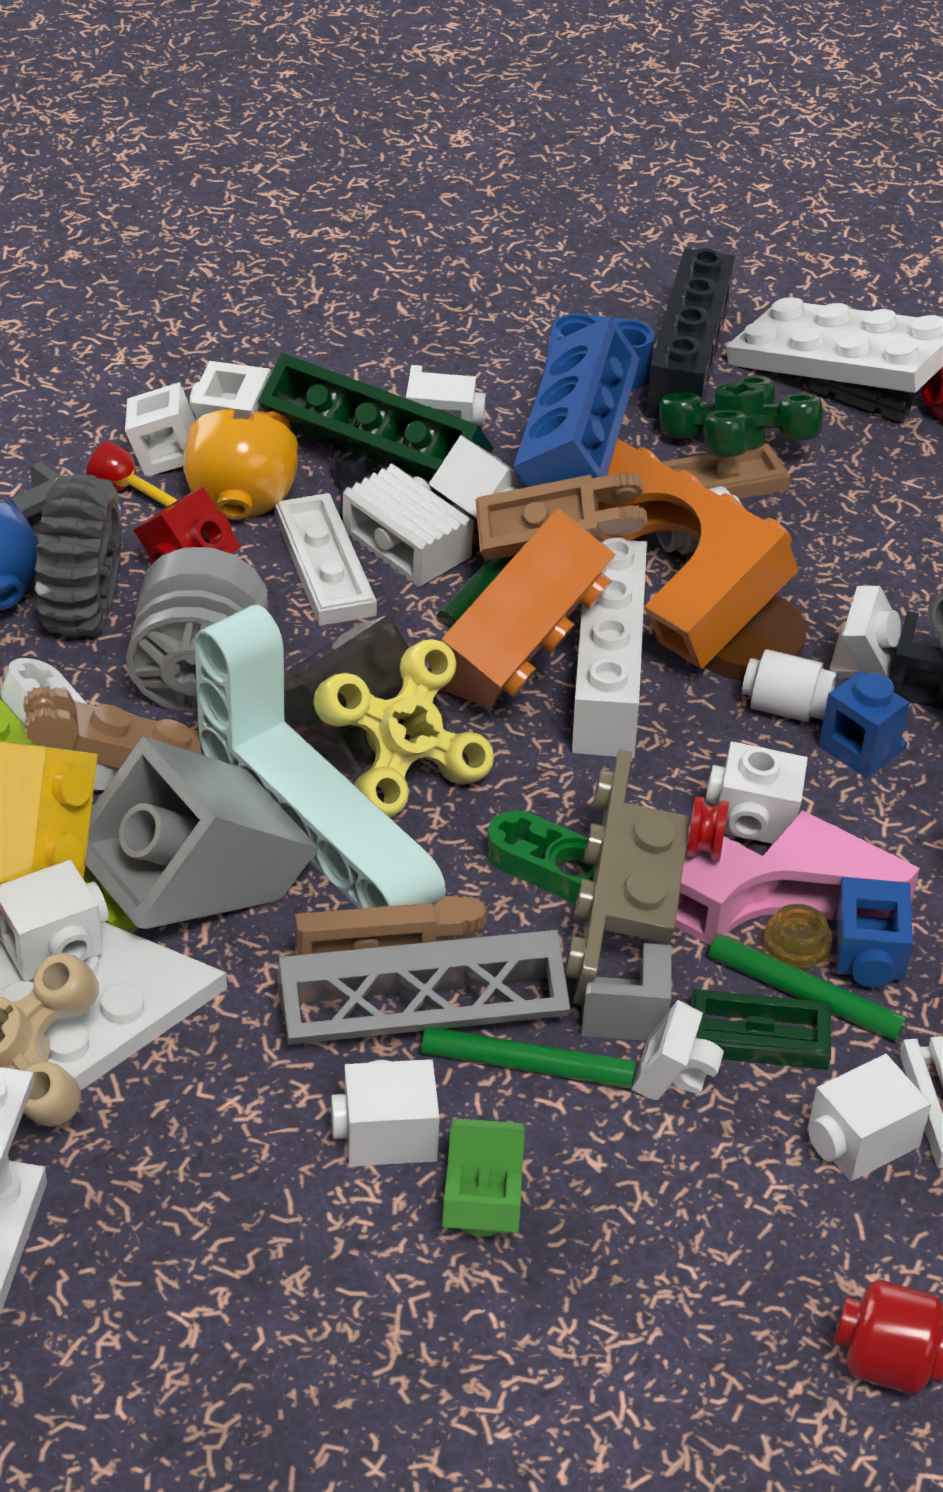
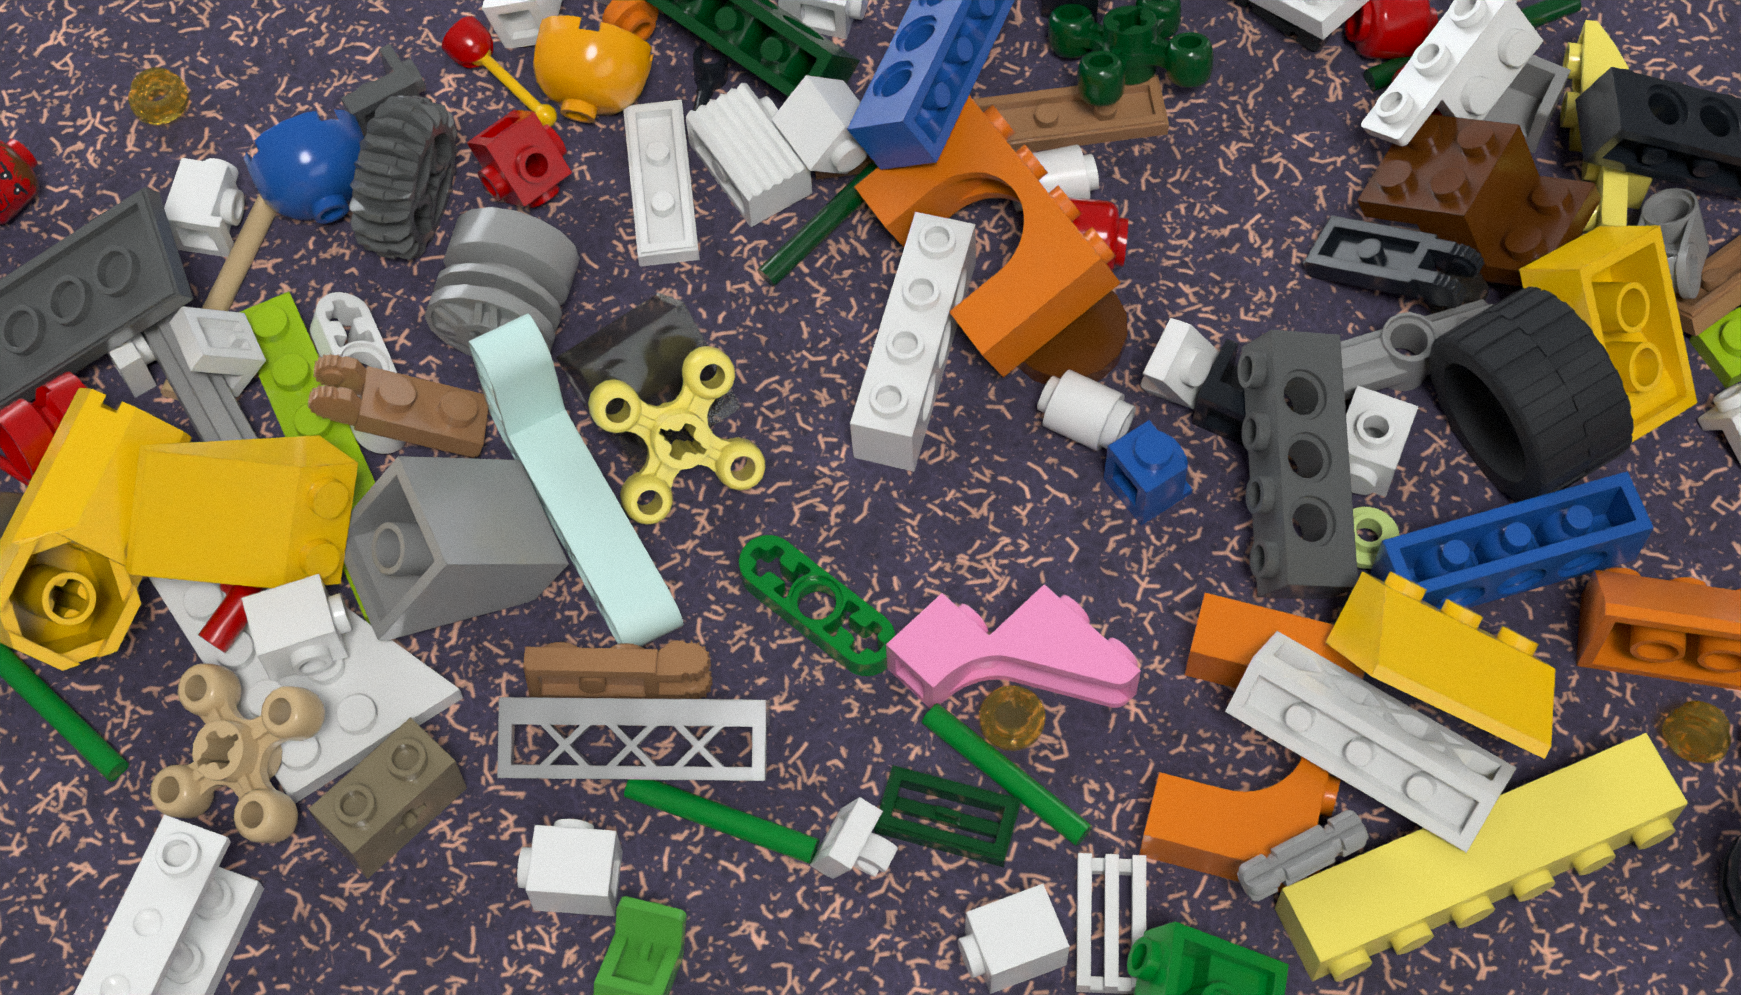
camera: 15 degrees right, 20 degrees up
(174, 1069) = (388, 797): none -> dark tan brick
(514, 516) = (881, 189): medium nougat hinge -> none
(526, 610) = (822, 313): orange slope -> none
(630, 1006) = (827, 770): light grey panel -> none
(634, 878) = (856, 645): dark tan bracket -> none
(707, 828) = (934, 608): red bush -> none
(761, 790) = (1010, 548): white brick -> none
(873, 947) = (1083, 707): blue brick -> none

